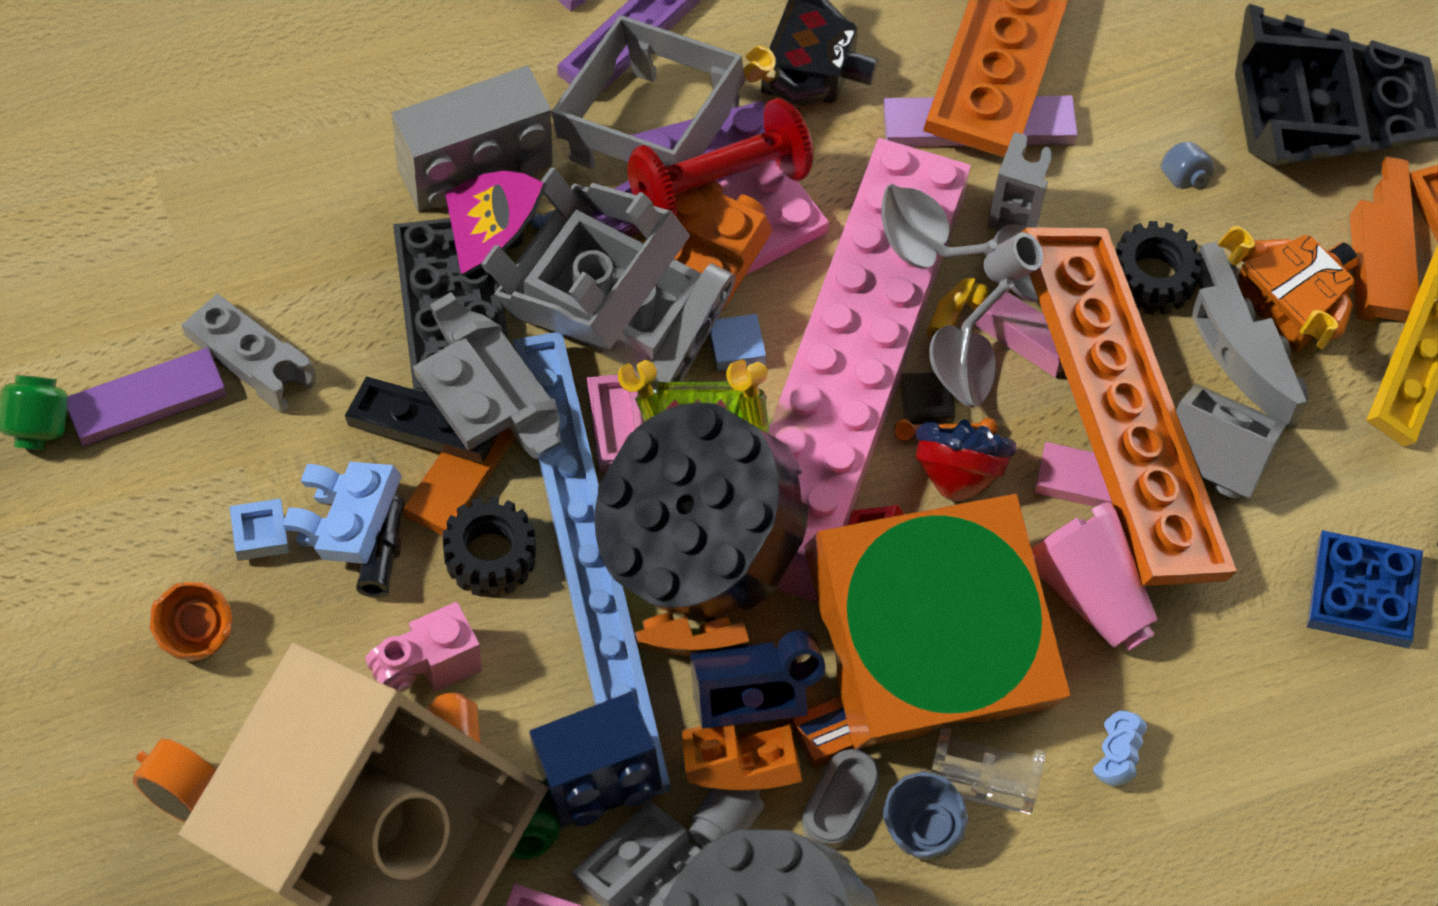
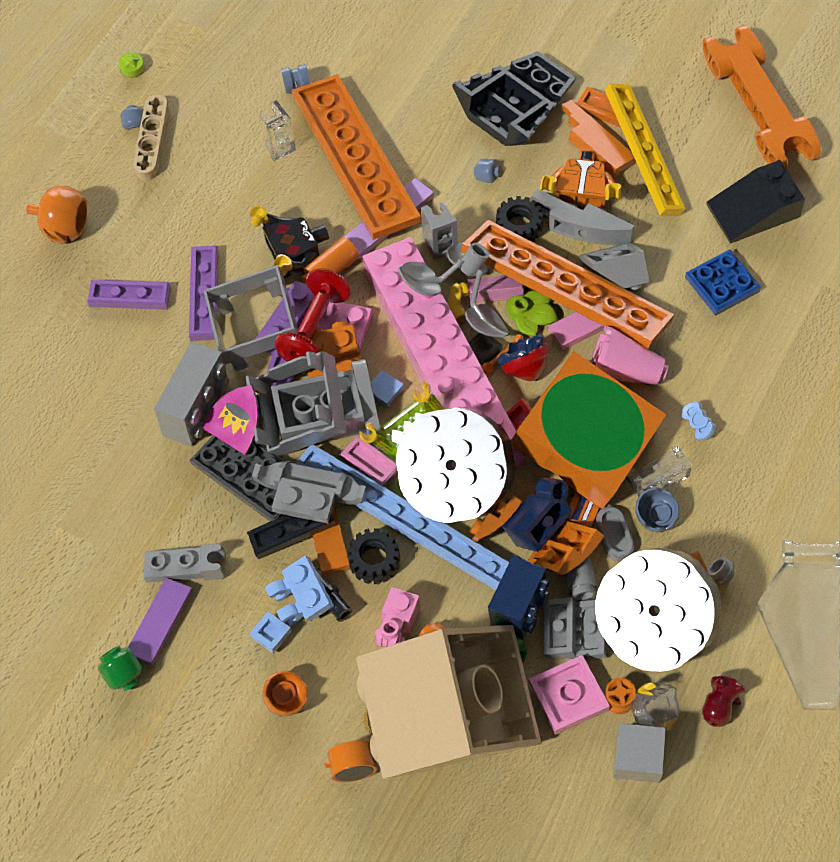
camera: 35 degrees left, 0 degrees up
(843, 117) = (335, 258): none -> orange brick
(1044, 409) = (534, 312): none -> lime plate

